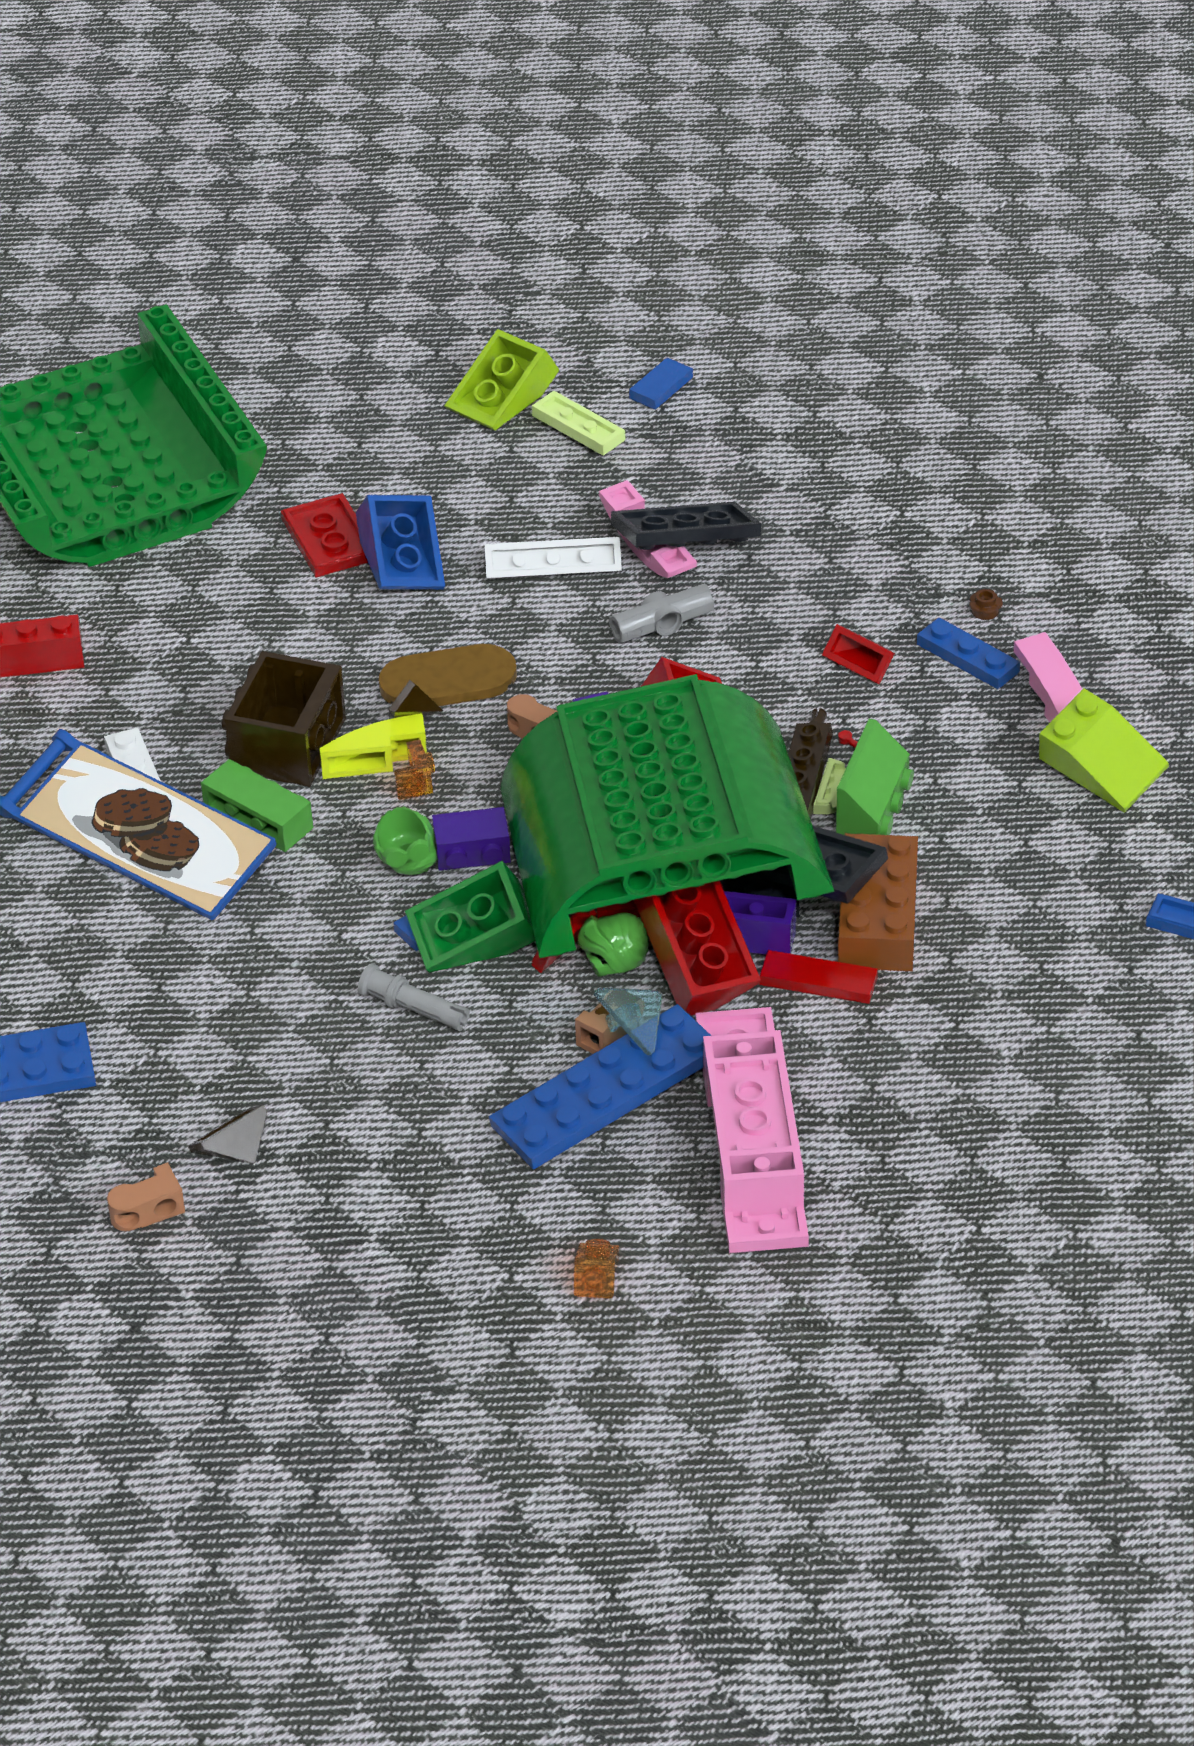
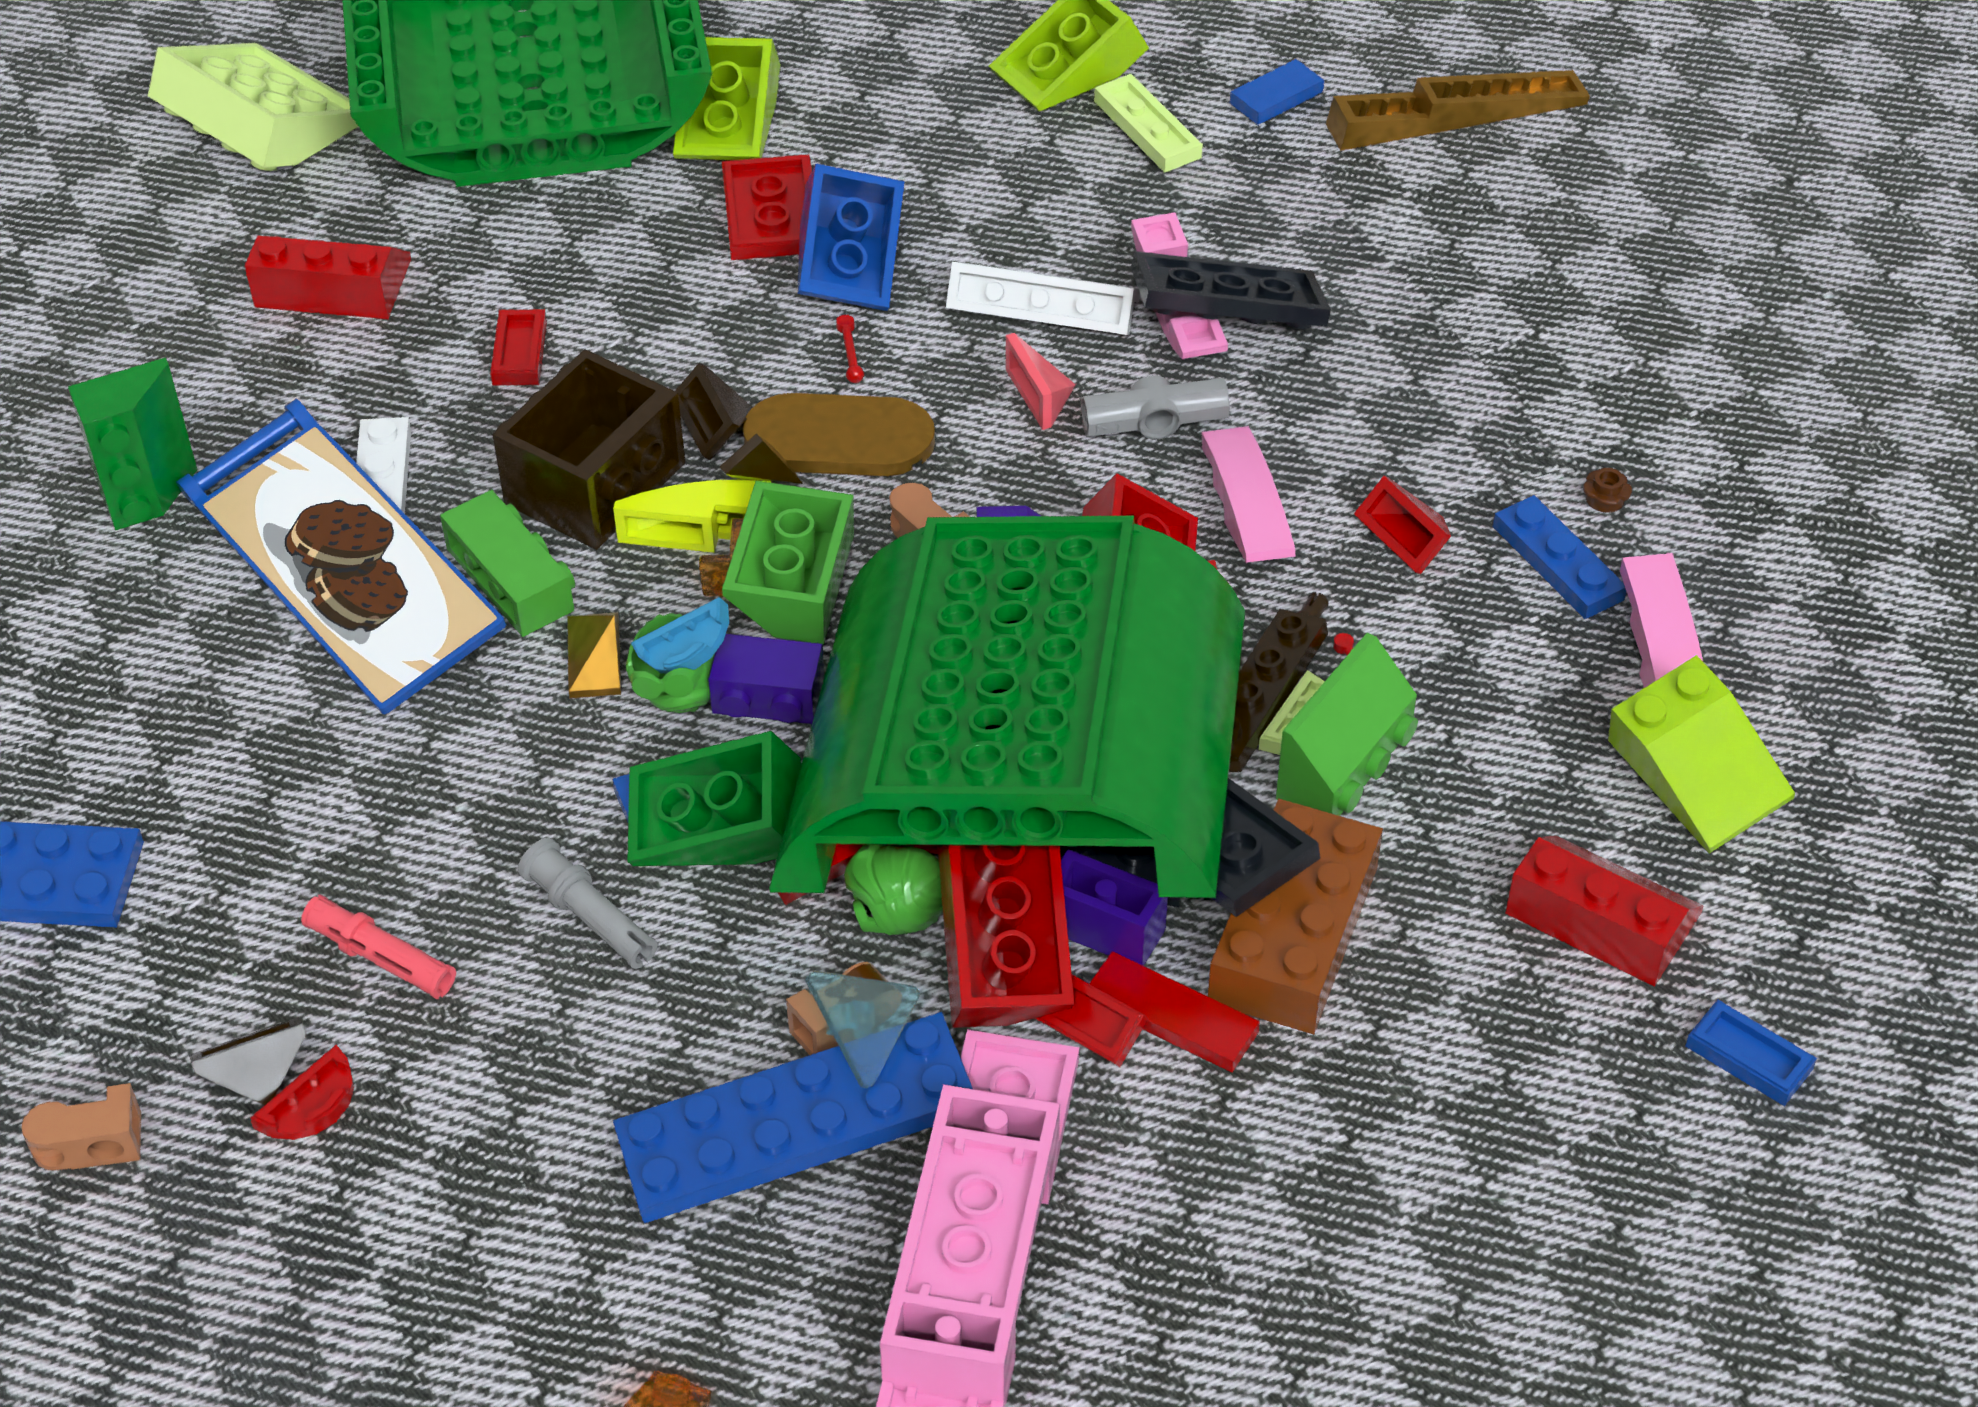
camera: 15 degrees right, 5 degrees up
(191, 666) = (518, 347): none -> red tile
(269, 1051) = (360, 936): none -> coral pin
(280, 476) = (737, 103): none -> lime slope
(282, 1153) = (310, 1101): none -> red tile
(343, 850) = (593, 655): none -> pearl gold slope
(358, 679) = (710, 409): none -> dark brown slope
(414, 822) = (686, 640): none -> dark azure tile
(418, 603) = (845, 325): none -> red hinge
(458, 758) = (791, 559): none -> bright green slope
(570, 613) = (1037, 381): none -> coral slope
(749, 655) = (1248, 494): none -> bright pink slope
(777, 991) = (1098, 1022): none -> red tile
(787, 368) = (1450, 104): none -> pearl gold slope
(1067, 858) = (1600, 908): none -> red slope

